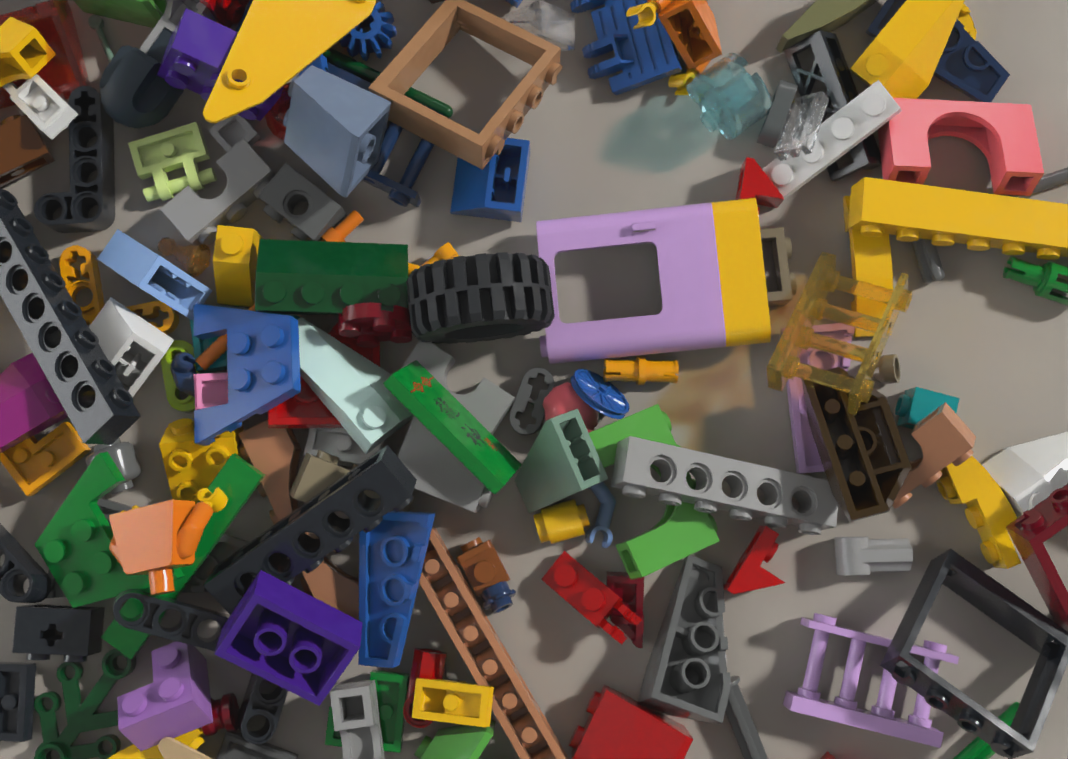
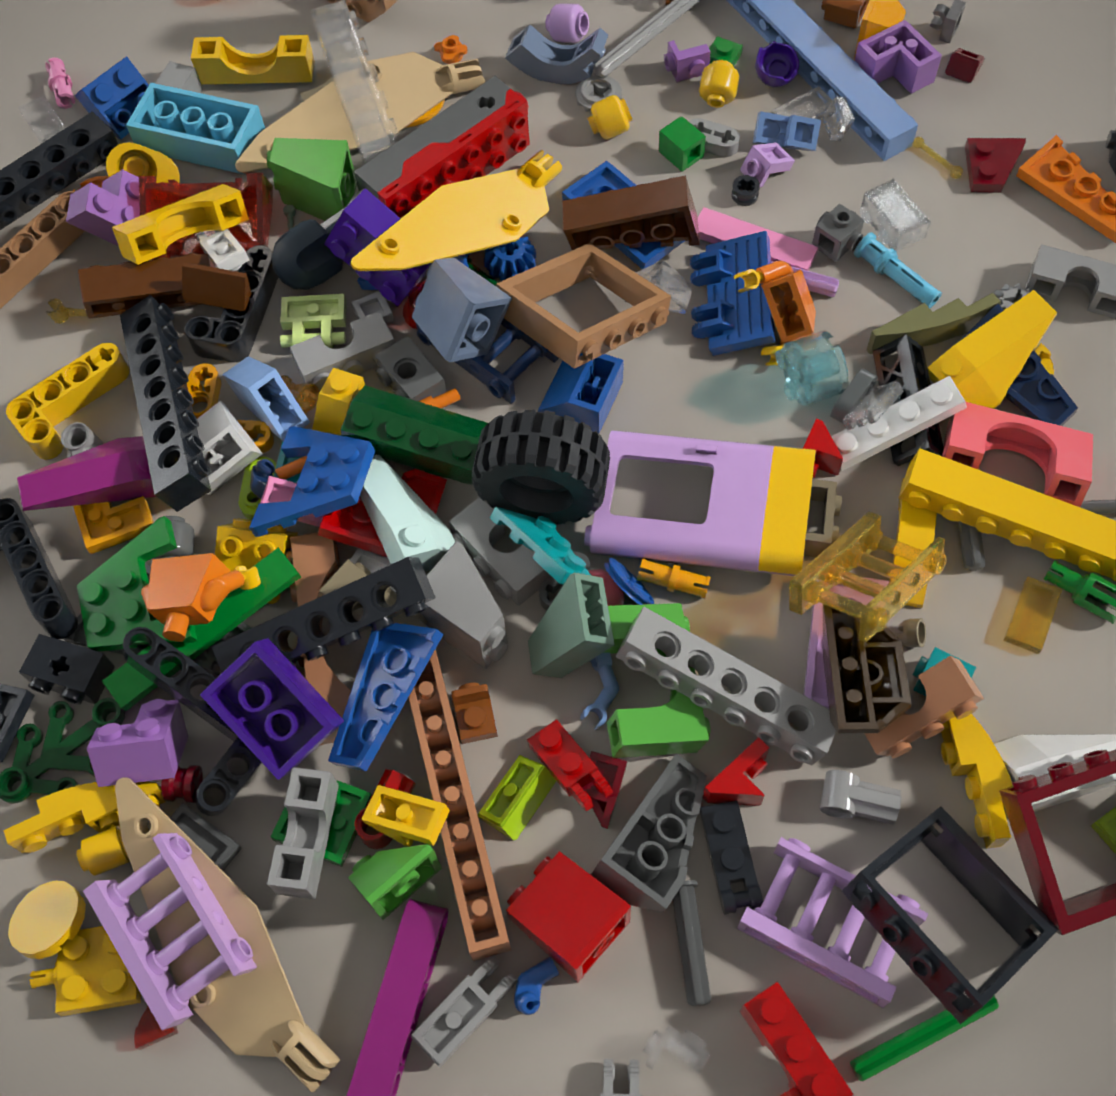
camera: 15 degrees right, 20 degrees down
(52, 159) = (215, 286): none -> reddish brown slope
(372, 325) = (441, 470): dark red plate -> none
(453, 425) = (484, 565): green tile -> none
(497, 597) = (479, 744): dark blue plate -> none
(504, 373) = (541, 536): none -> teal wing
(546, 636) = (517, 797): none -> lime slope
(561, 521) = (561, 691): yellow brick -> none
(762, 641) = (730, 856): none -> black plate
(999, 317) = (1033, 615): none -> clear yellow tile

